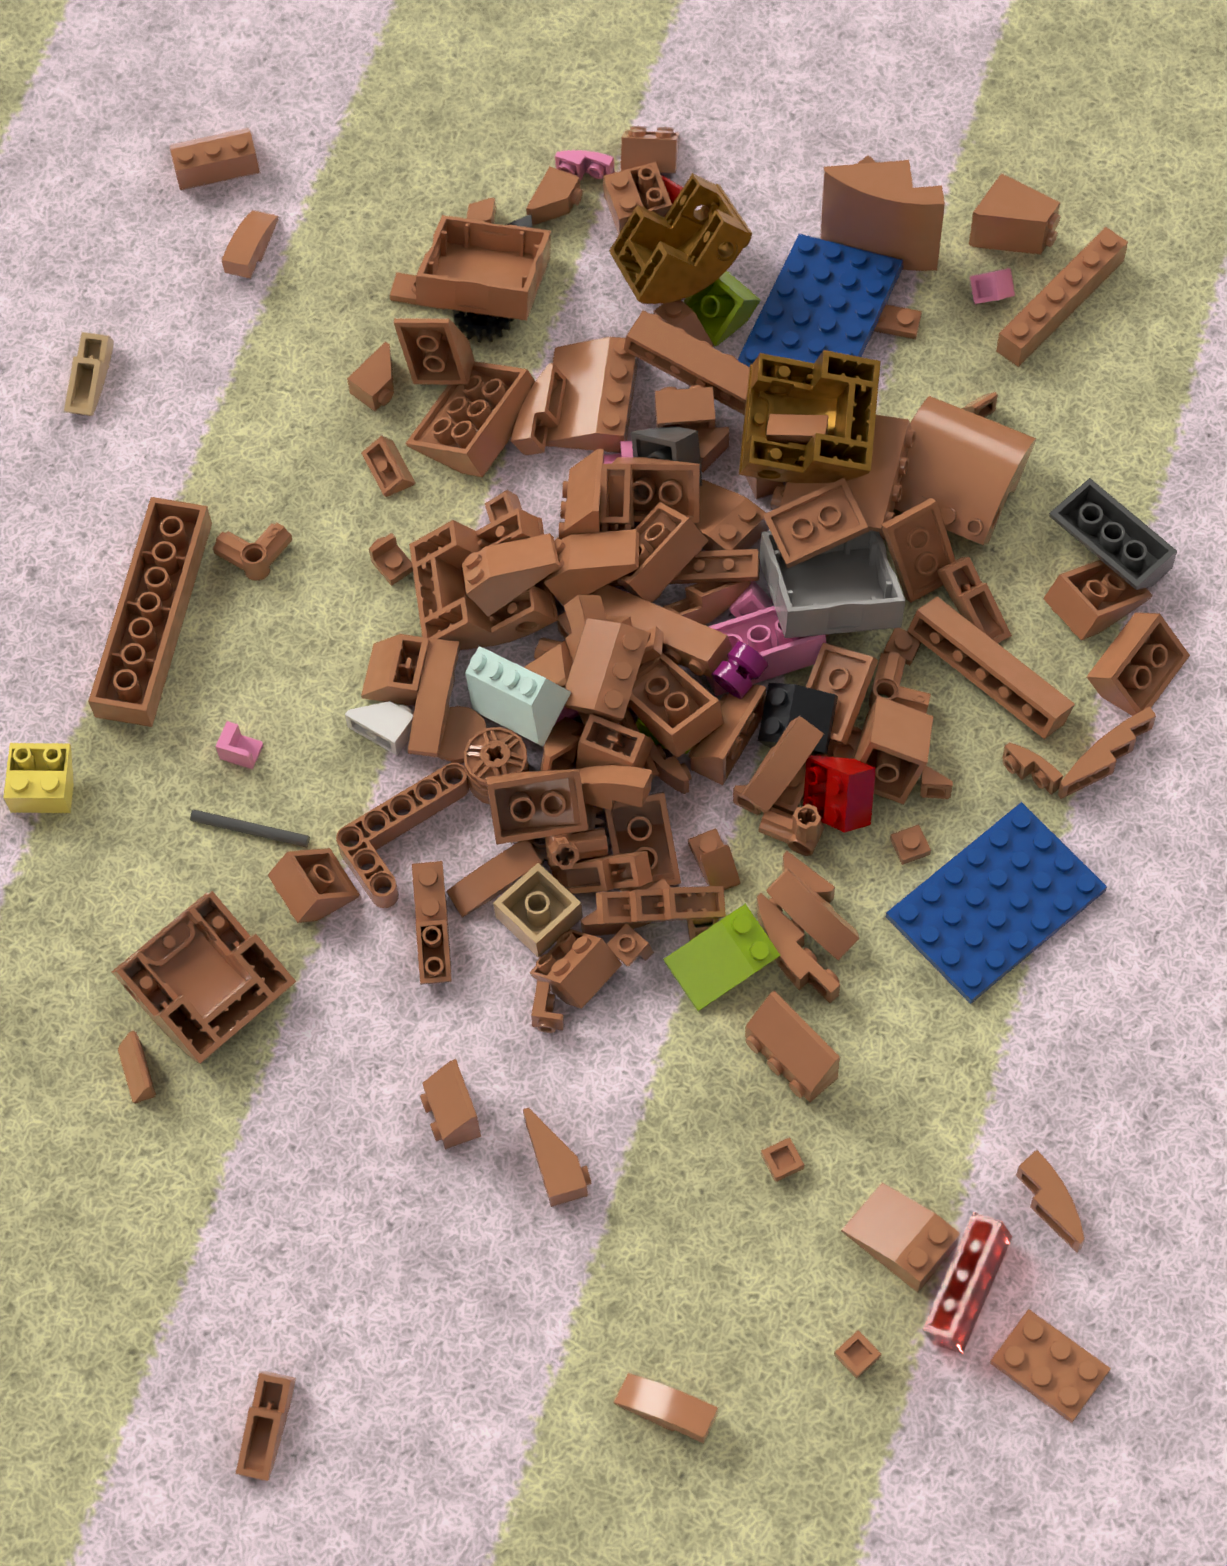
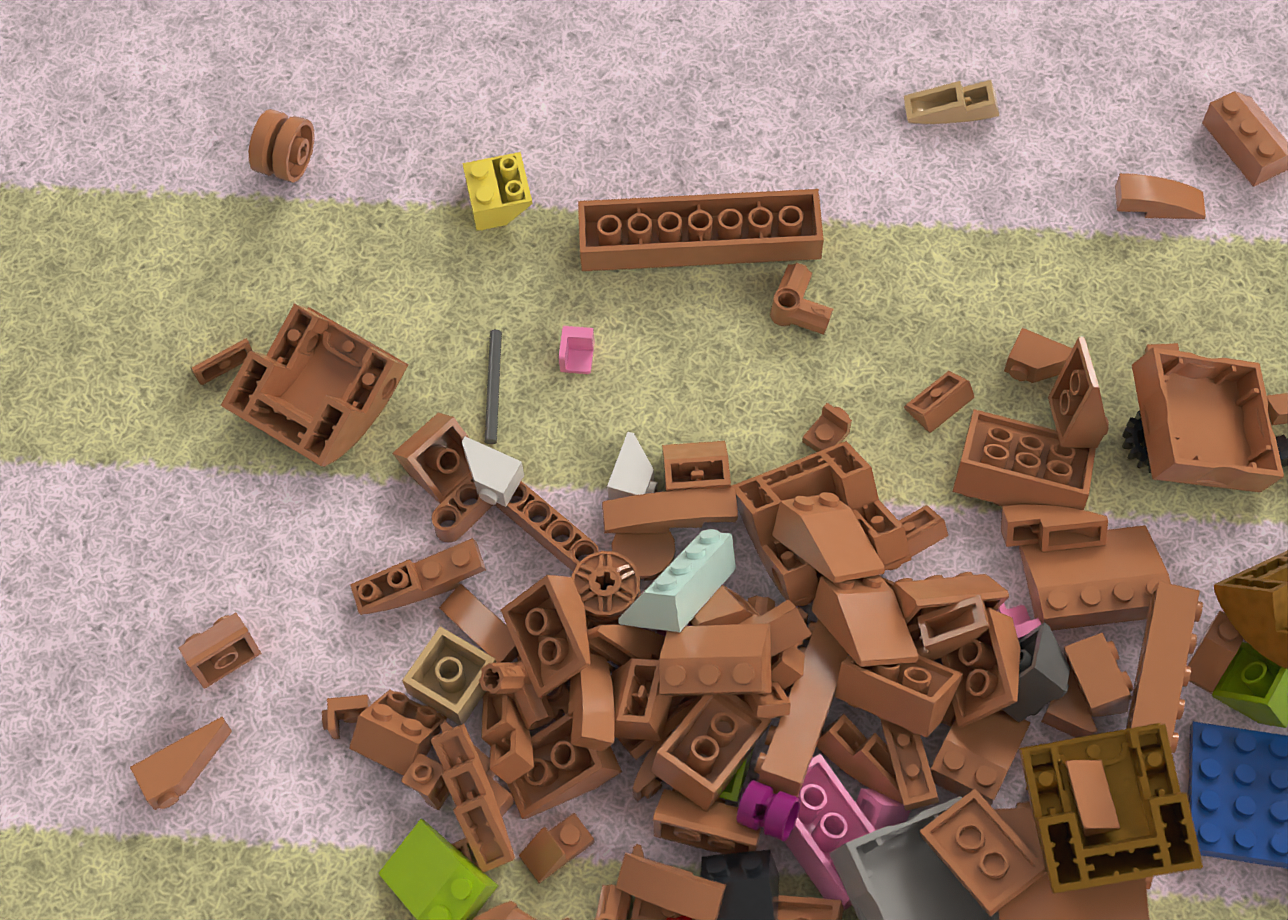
camera: 75 degrees right, 0 degrees up
(353, 831) = (493, 472): none -> white slope

